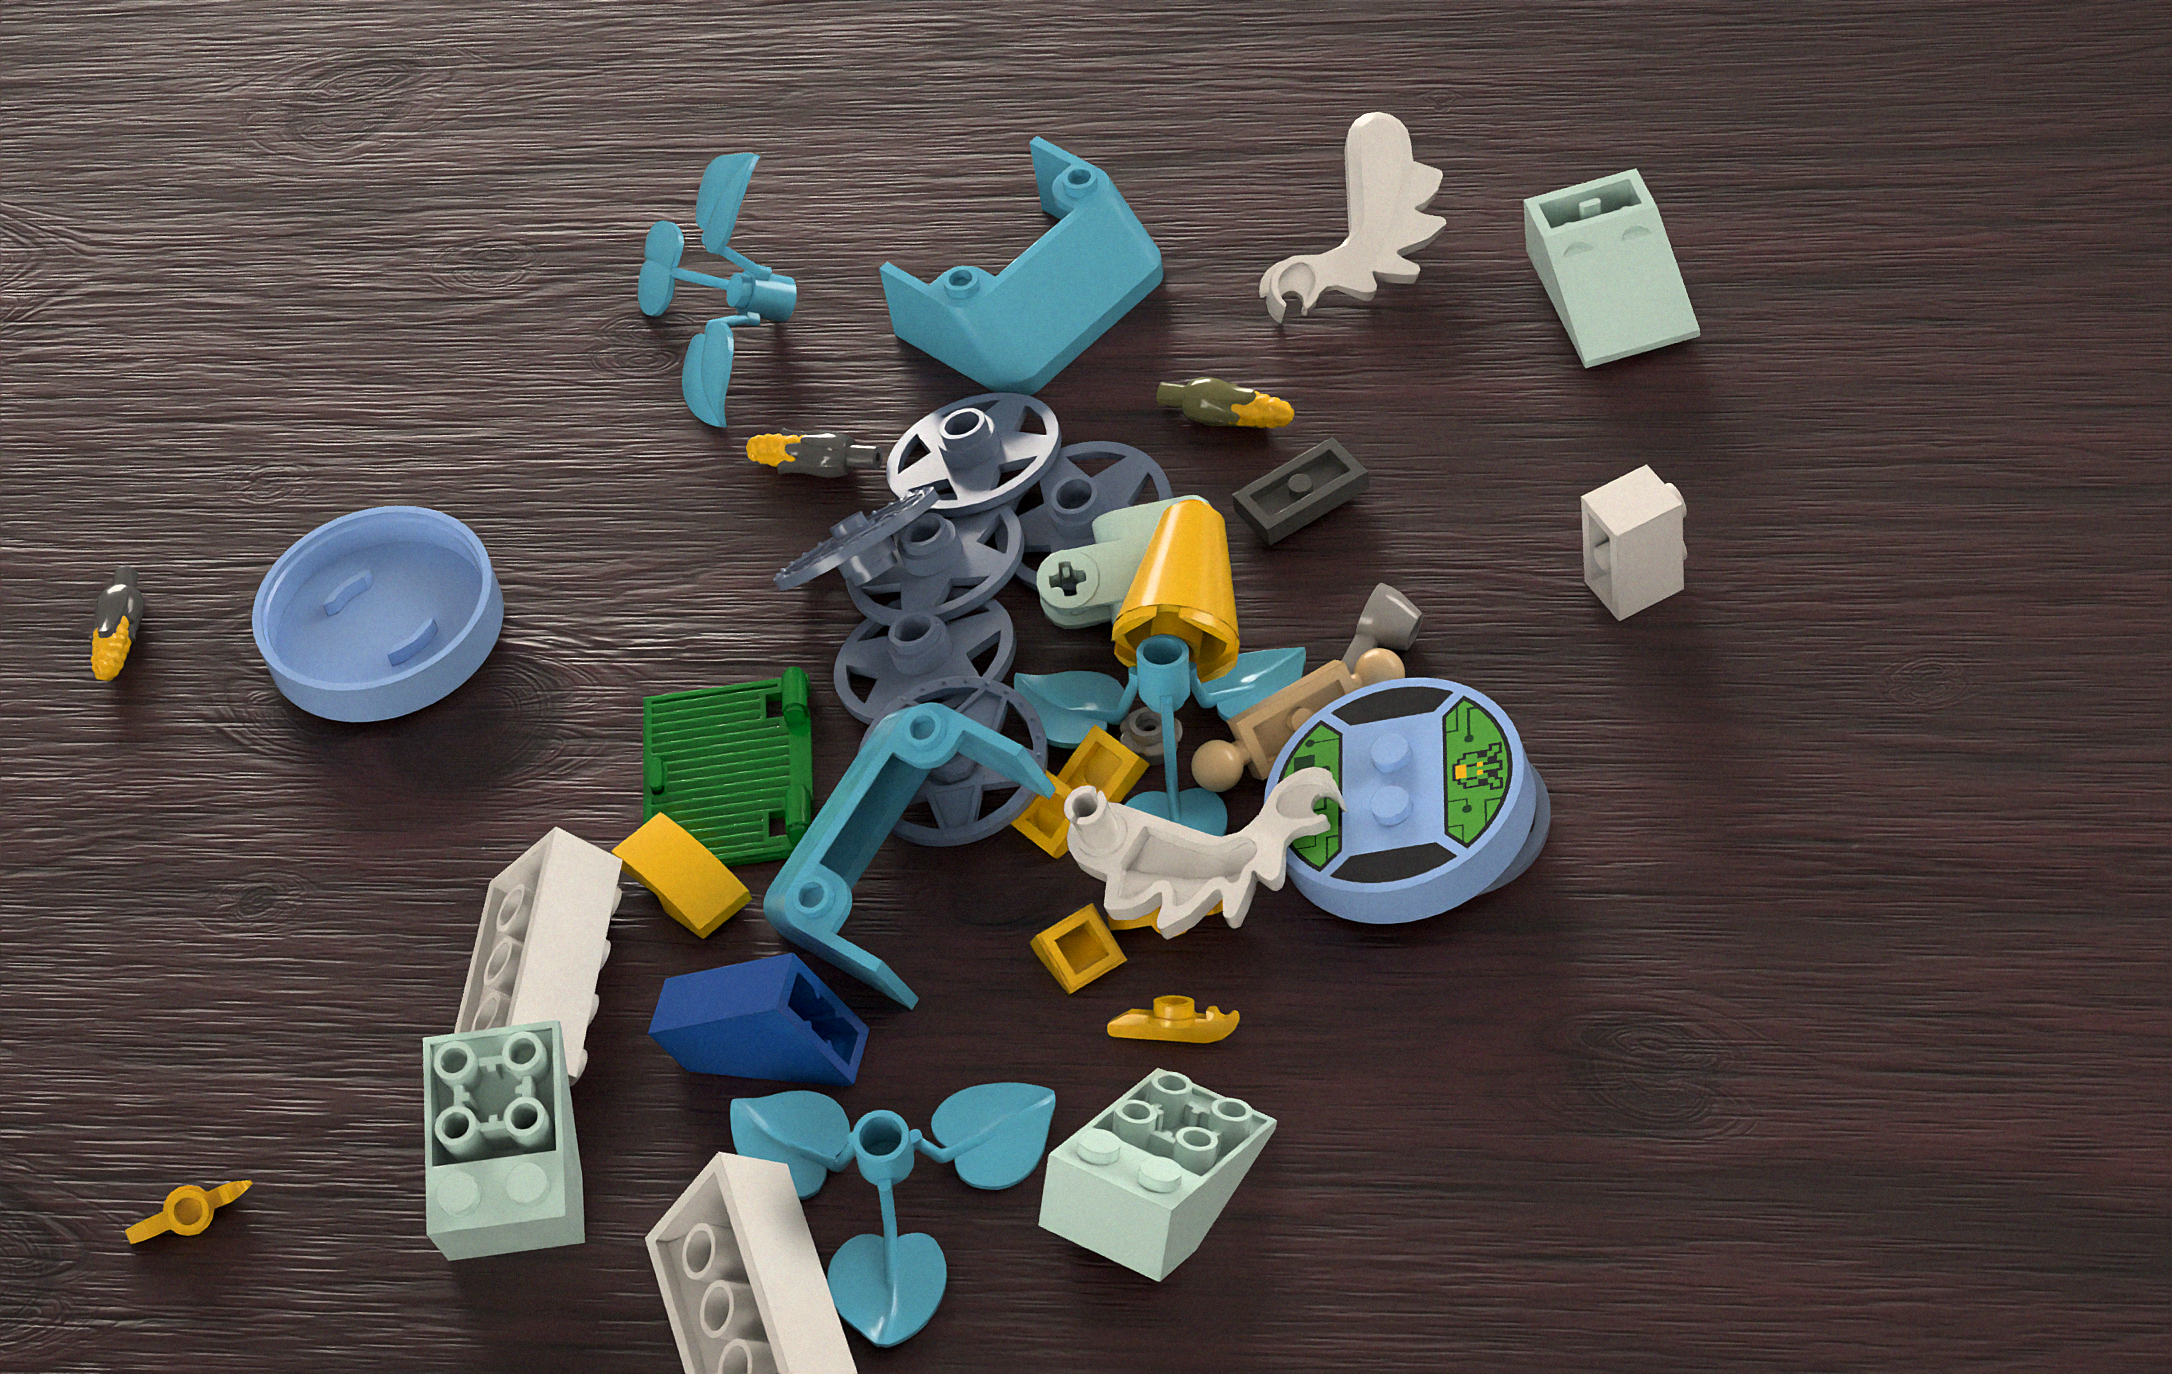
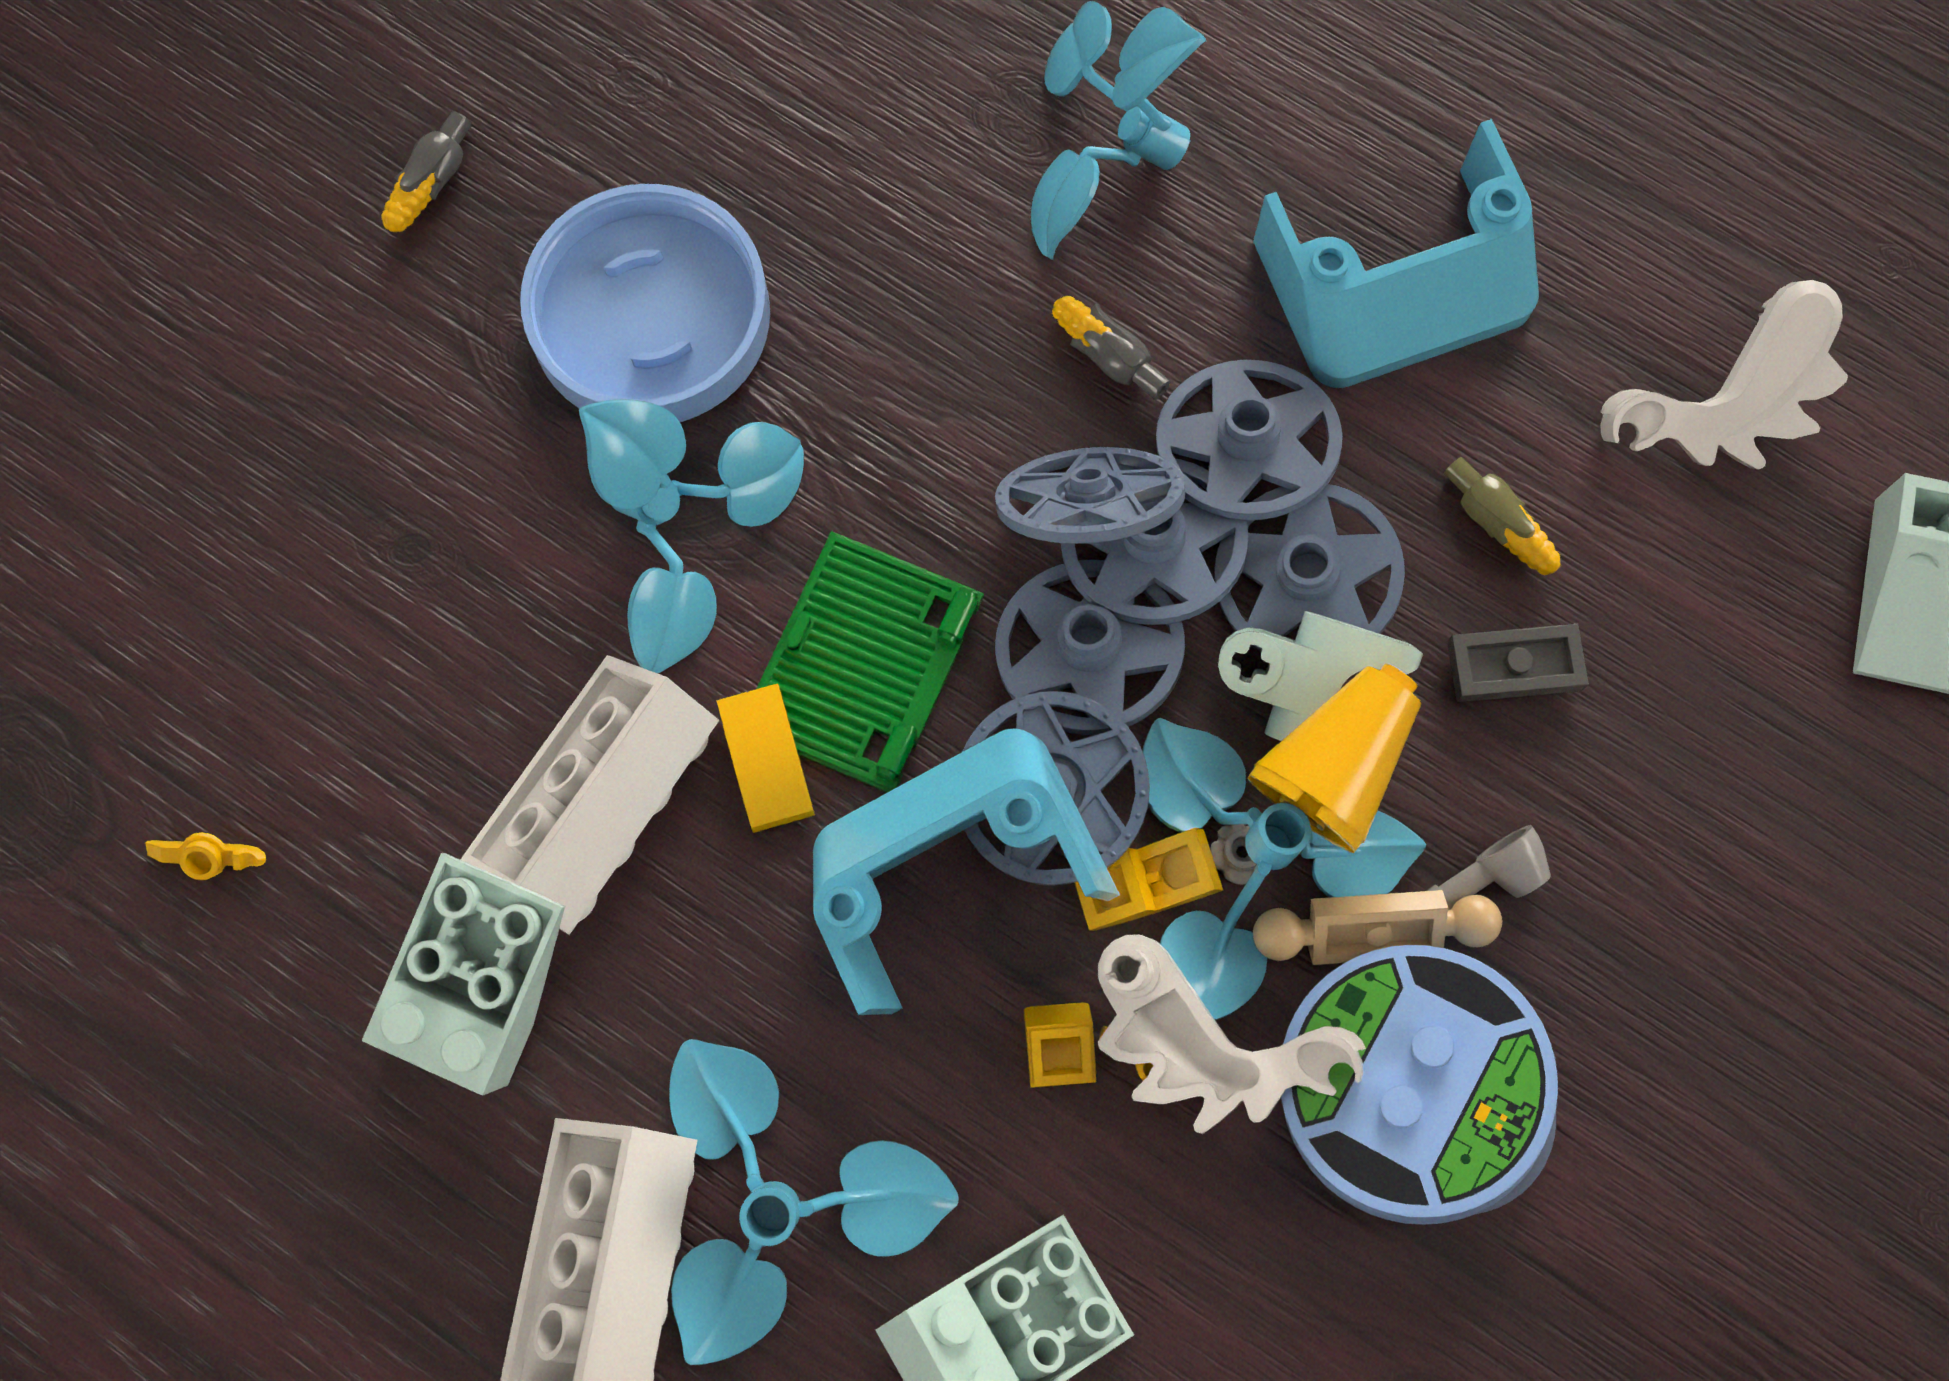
camera: 20 degrees right, 25 degrees up
(436, 656) = (628, 462): none -> medium azure plant
(760, 1023) = (746, 973): blue slope -> none
(1174, 1020) = (1101, 1176): yellow piece -> none
(1633, 541) = (1785, 933): white brick -> none

